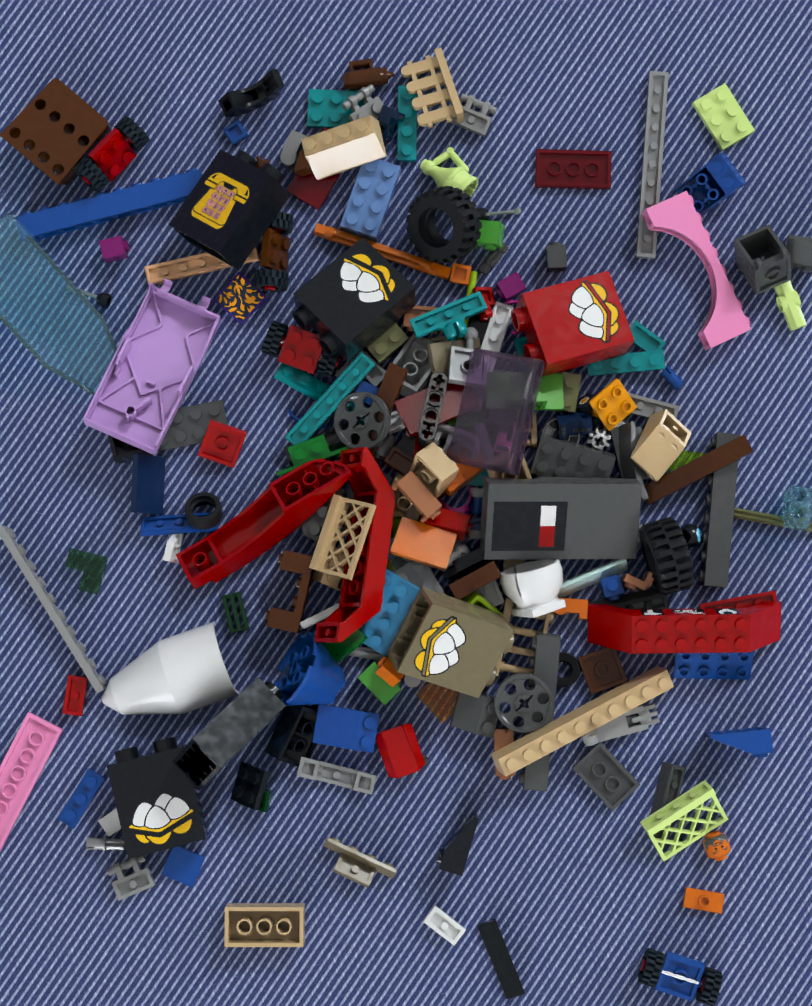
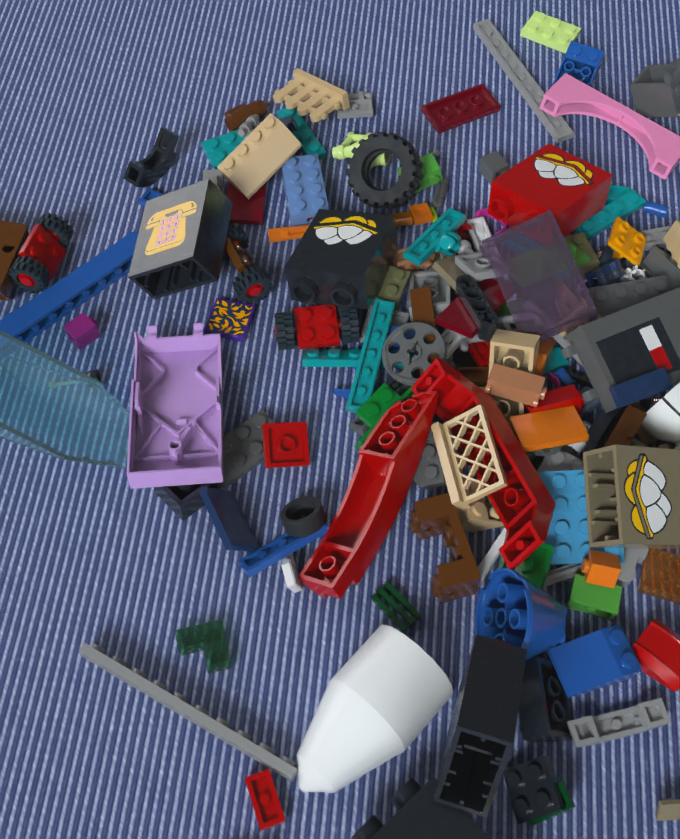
camera: 30 degrees left, 25 degrees down
(189, 267) = (175, 309): light nougat tile -> none
(302, 167) = (229, 188): reddish brown slope -> none
(510, 287) = (471, 202): magenta brick -> none
(510, 553) = (640, 387): none -> dark blue tile

